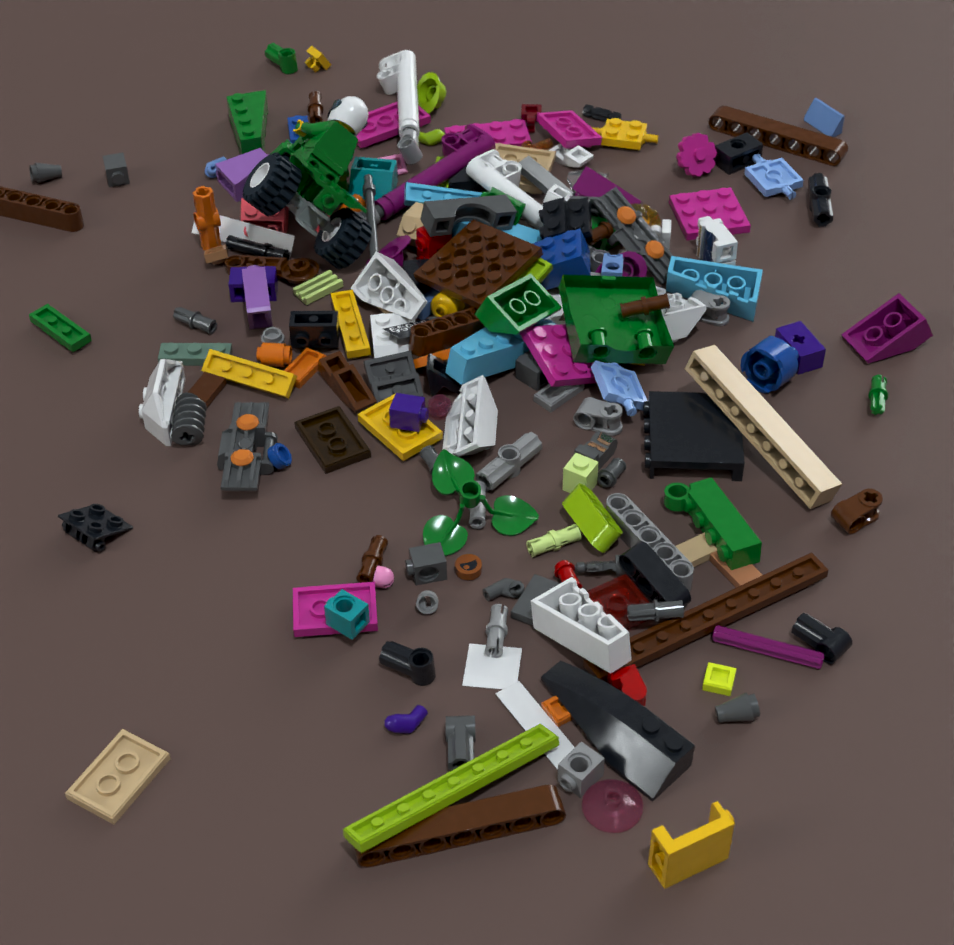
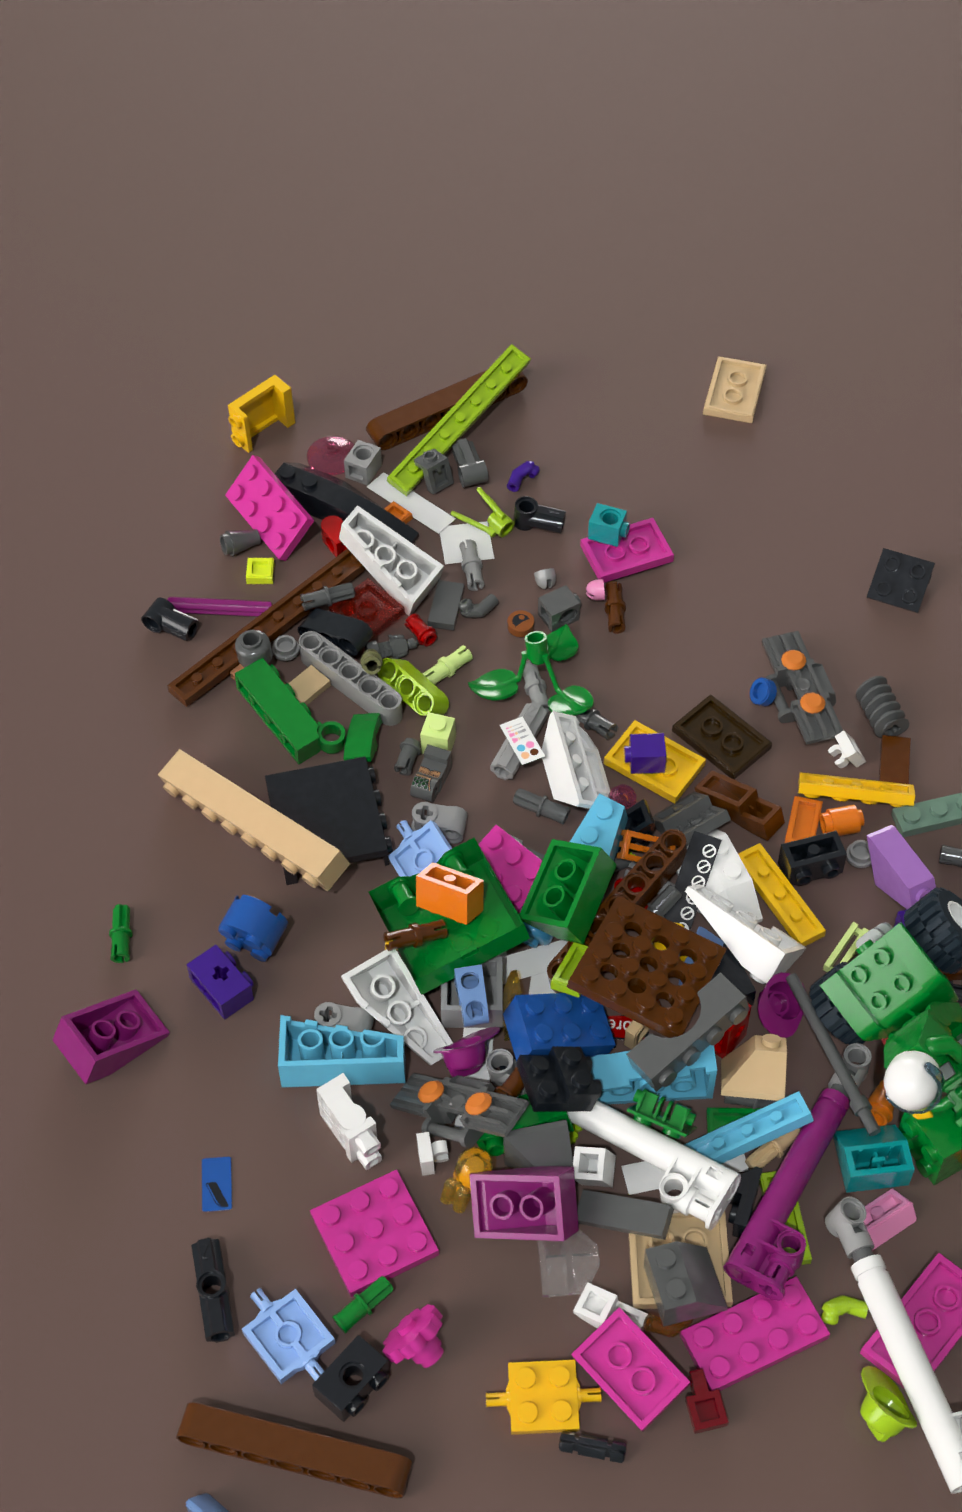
camera: 165 degrees right, 10 degrees up
(160, 399) = (928, 725): white wedge -> none
(236, 395) = (849, 751): none -> white tile
(453, 667) = (498, 521): none -> lime plant
(503, 733) = (435, 470): none -> dark grey bracket
(509, 414) = (541, 806): none -> dark grey axle
(509, 443) = (522, 740): none -> white sticker
(523, 140) = (683, 1282): none -> dark grey slope
(611, 315) = (449, 893): none -> orange brick
(627, 526) = (371, 667): none -> olive pin
(649, 491) = (362, 736): none -> green slope
(701, 725) = (269, 508): none -> dark pink plate
(705, 589) = (285, 648): none -> light grey plate
(724, 181) = (363, 1304): none -> green axle
(739, 567) = (253, 646): none -> dark grey head
(812, 256) = (216, 1184): none -> blue sticker
(858, 510) = (140, 760): reddish brown piece -> none

